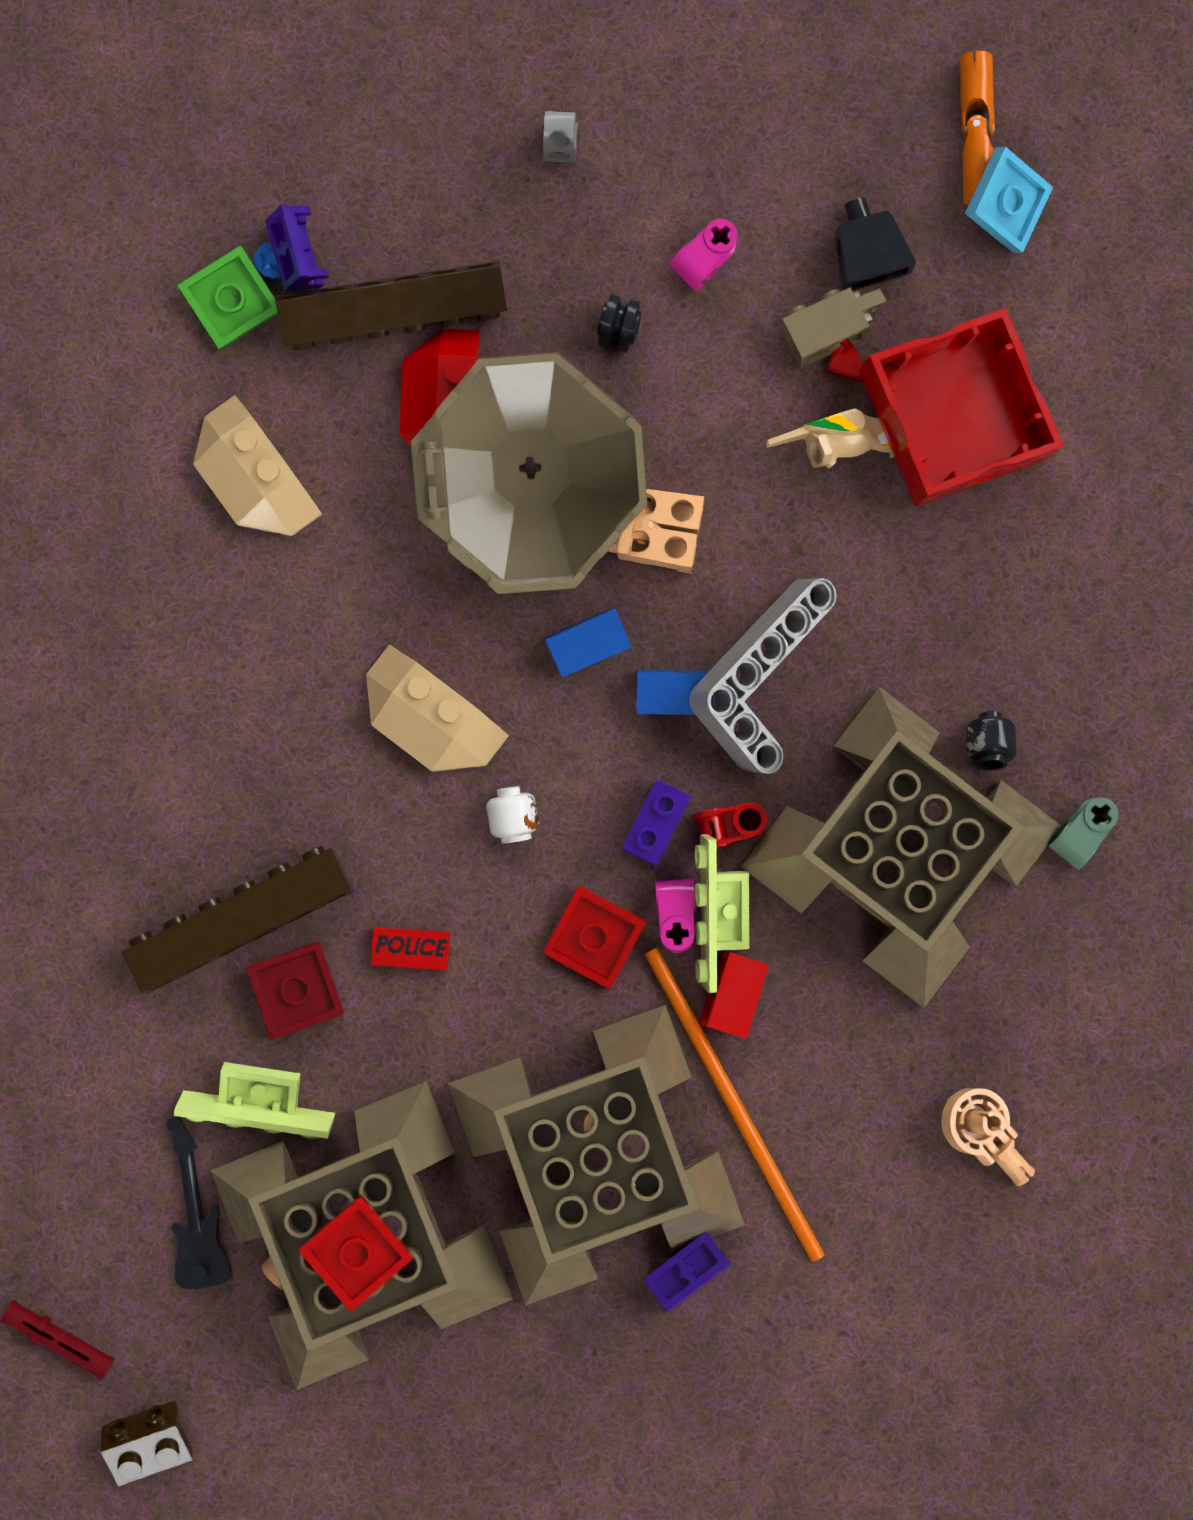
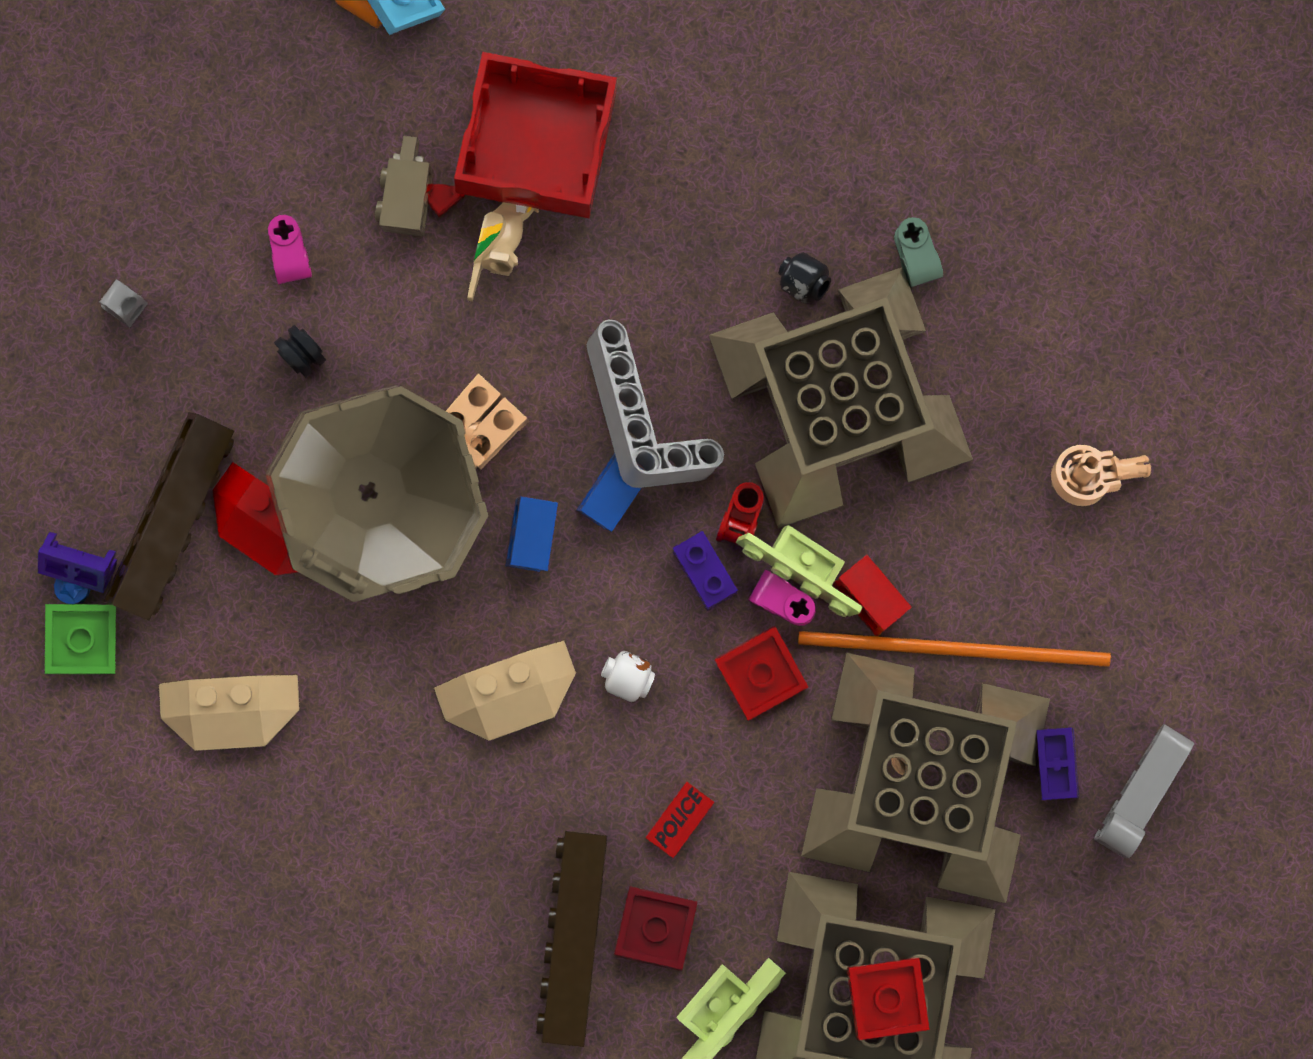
camera: 55 degrees left, 0 degrees up
(713, 1372) = (1143, 792): none -> light grey beam
(870, 247) = (366, 122): black torso -> none

